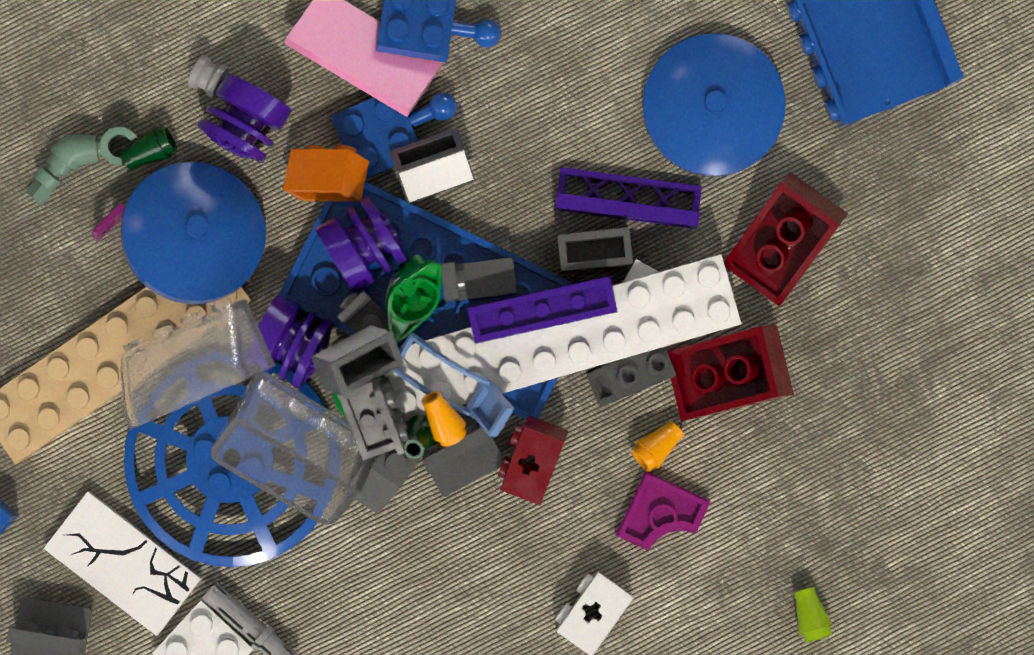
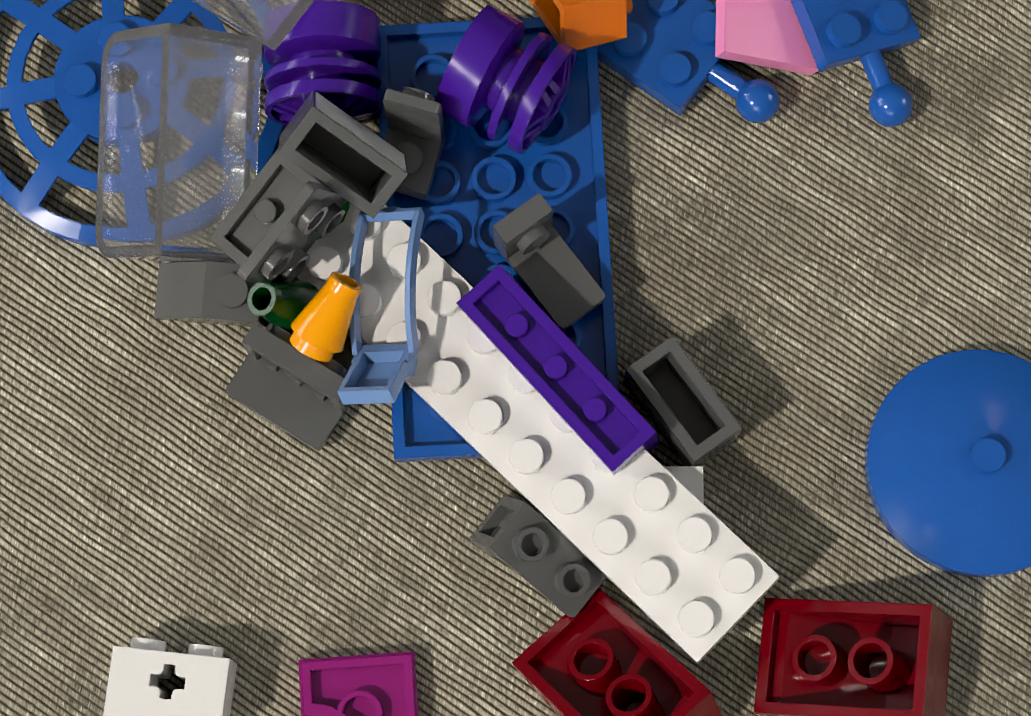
camera: 60 degrees right, 10 degrees down
(412, 295) = (472, 186): green hat -> none
(432, 165) = (669, 126): brick -> none
(528, 479) = (372, 484): dark red brick -> none
(626, 210) = (763, 417): dark purple fence -> none
(655, 447) = (457, 647): light orange cone -> none

